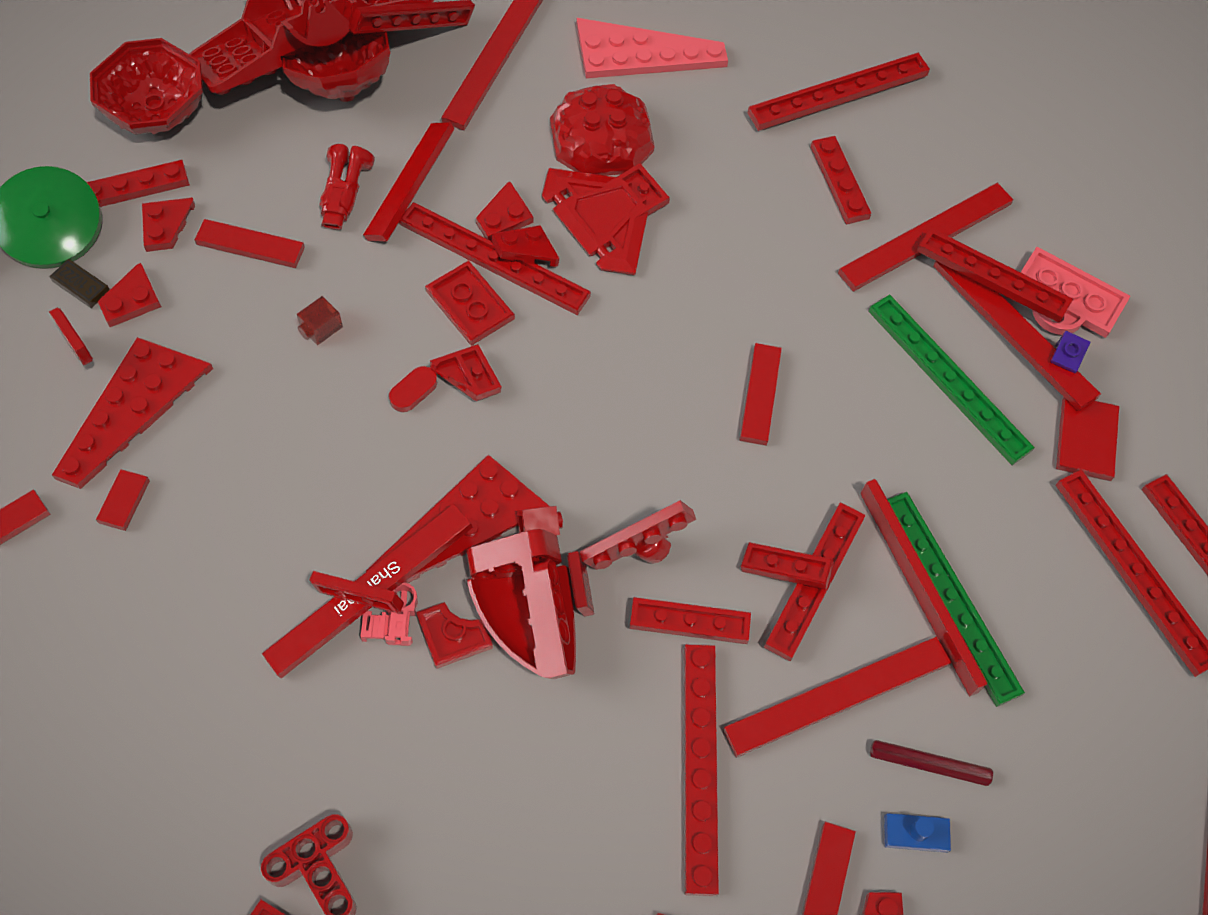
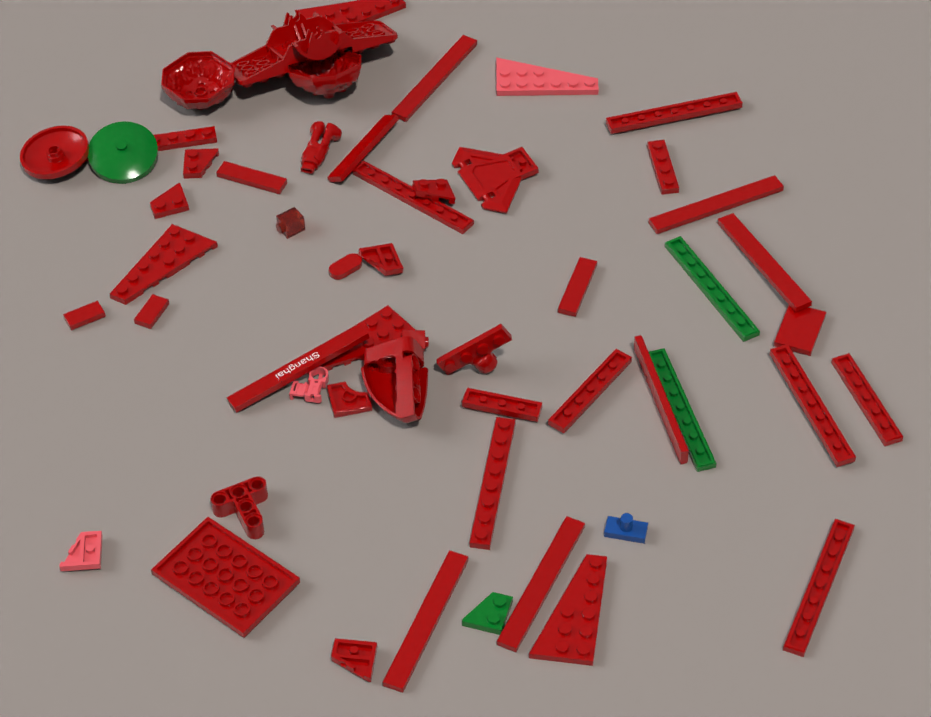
camera: 15 degrees right, 15 degrees down
(71, 336) = (132, 217): red tile -> none
(79, 283) = (139, 192): dark brown tile -> none
(356, 592) = (290, 363): red tile -> none
(411, 16) = (380, 47): red tile -> none
(470, 302) = (391, 221): red tile -> none
(504, 213) = (424, 169): red wing -> none
(580, 584) = (434, 378): red tile -> none
(601, 131) = (500, 126): red rock -> none
(787, 565) = (572, 379): red tile -> none
(836, 696) = (590, 454): red tile -> none
(931, 763) = (644, 494): dark red axle -> none
(995, 275) = (755, 227): red plate -> none
(1070, 351) = (796, 275): dark purple bracket -> none
(1094, 301) = (808, 245): coral plate -> none

